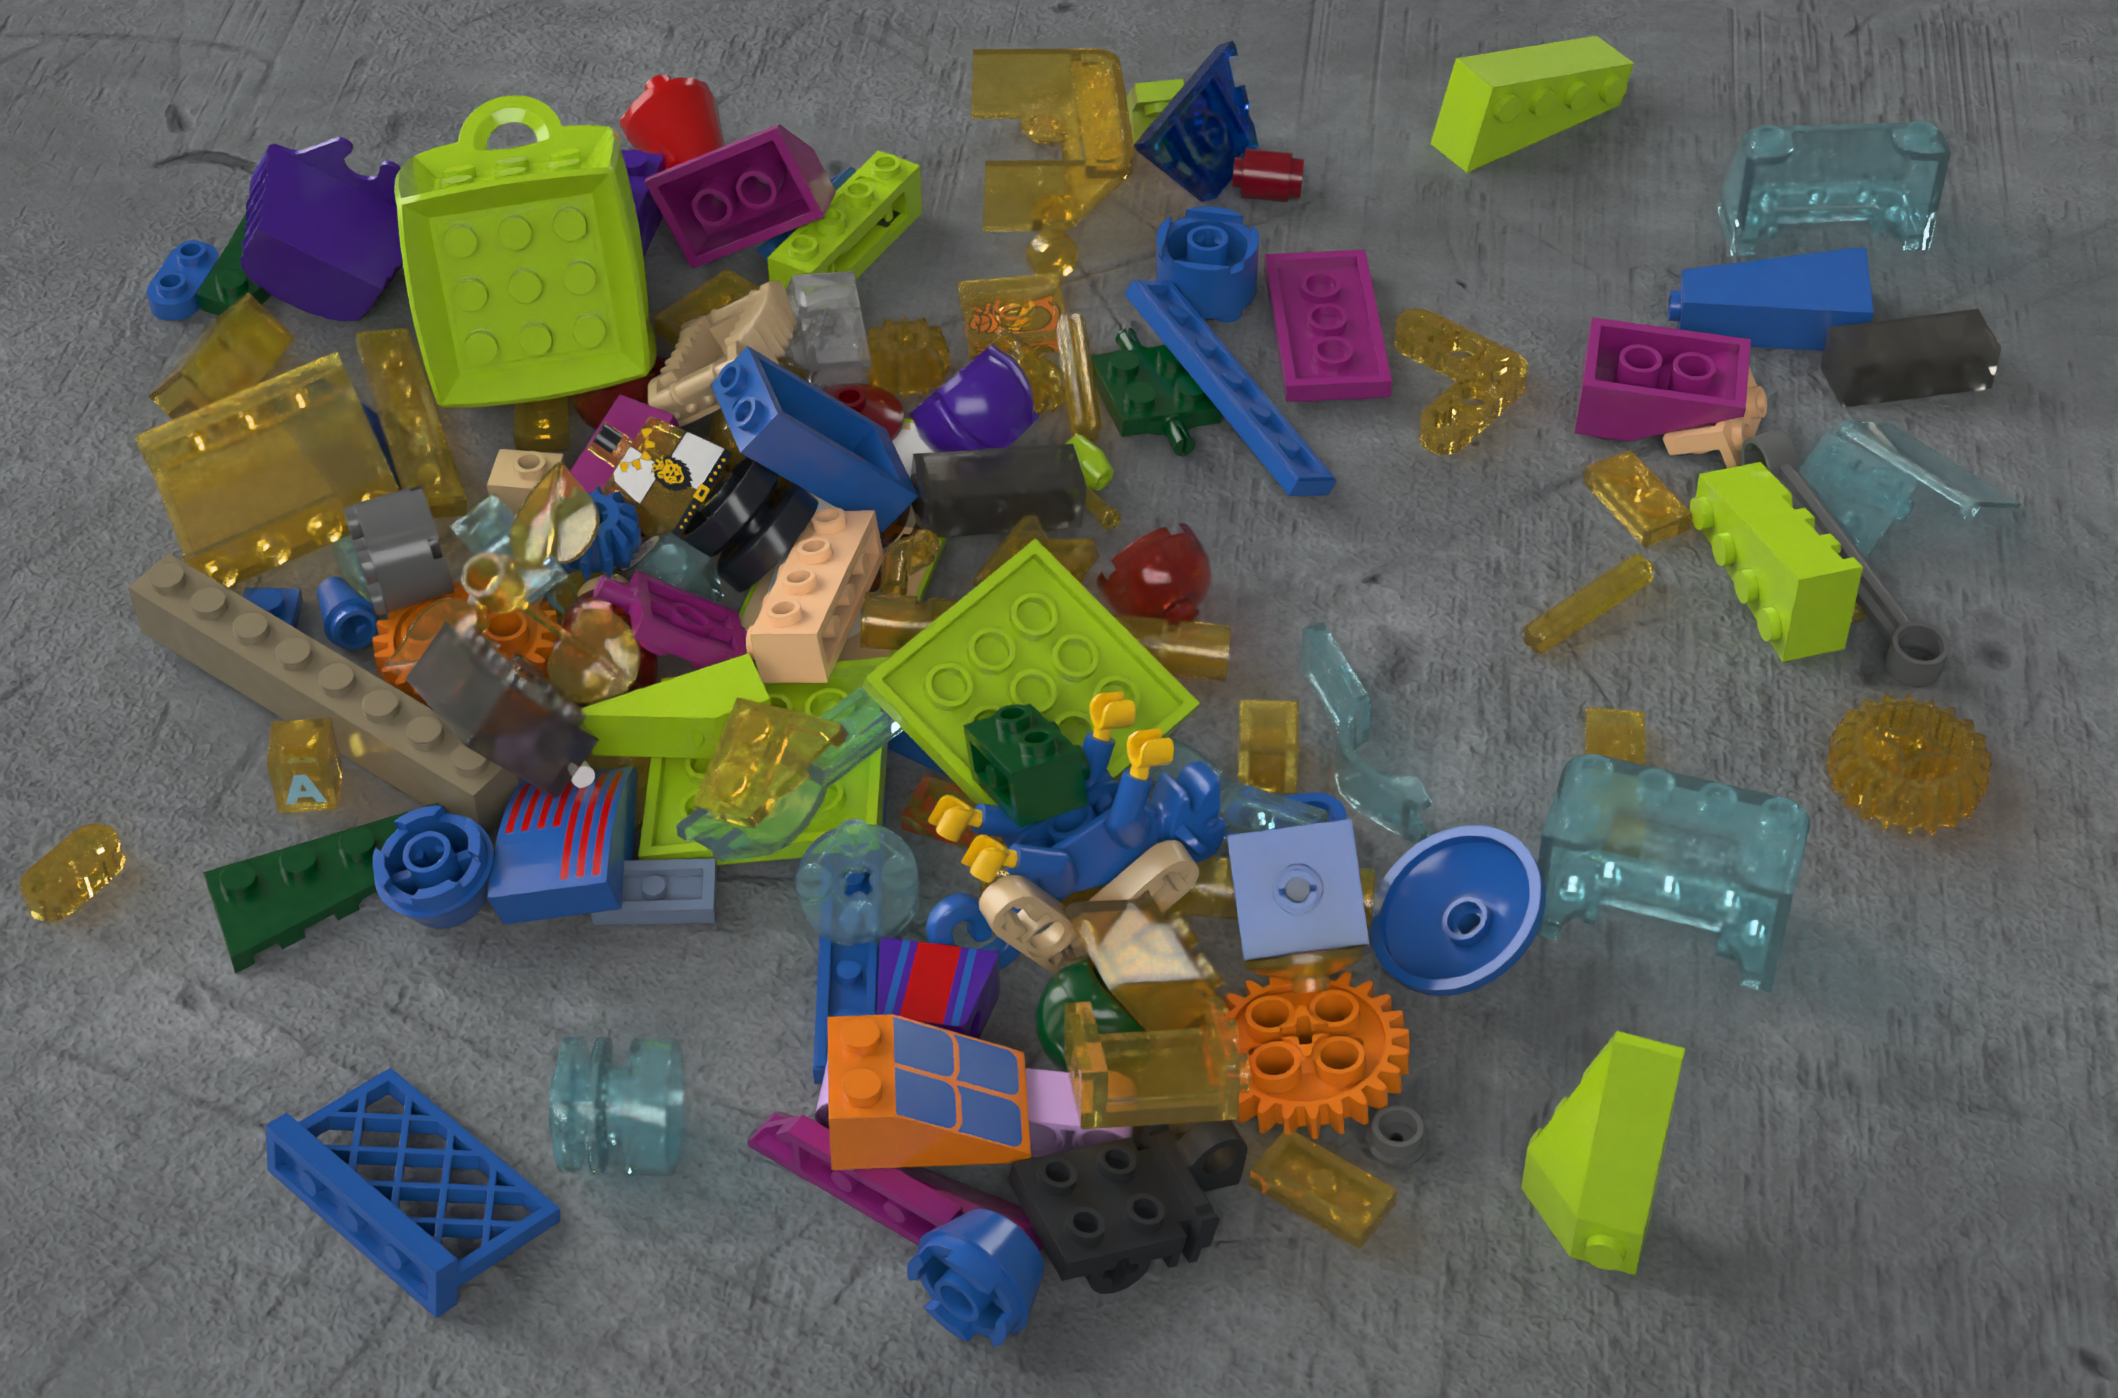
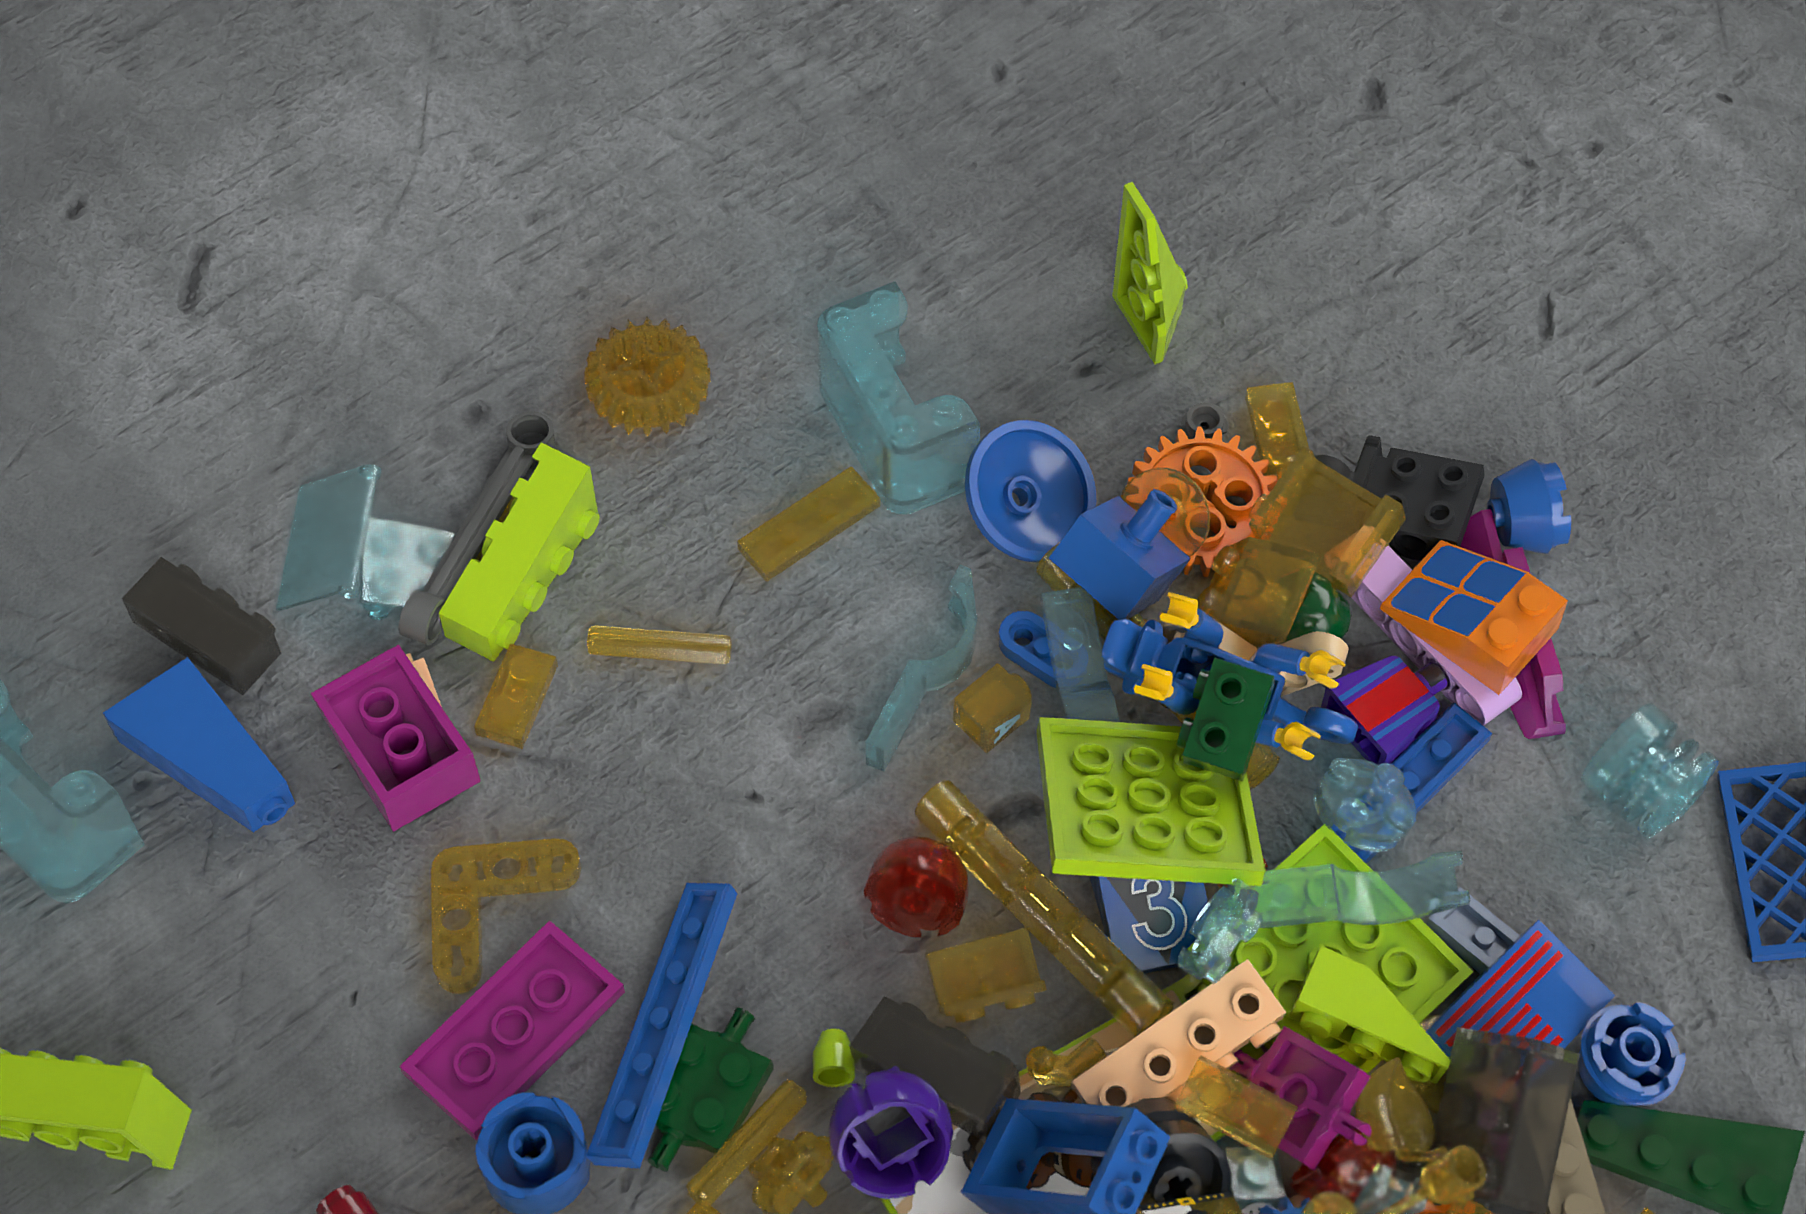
camera: 135 degrees left, 15 degrees up
(701, 571) = (1236, 1107): none -> clear yellow plate
(761, 760) = (1365, 904): clear yellow wing -> none
(858, 624) = (1219, 929): none -> clear light blue plate
(1106, 515) = (866, 1003): clear yellow piece -> none

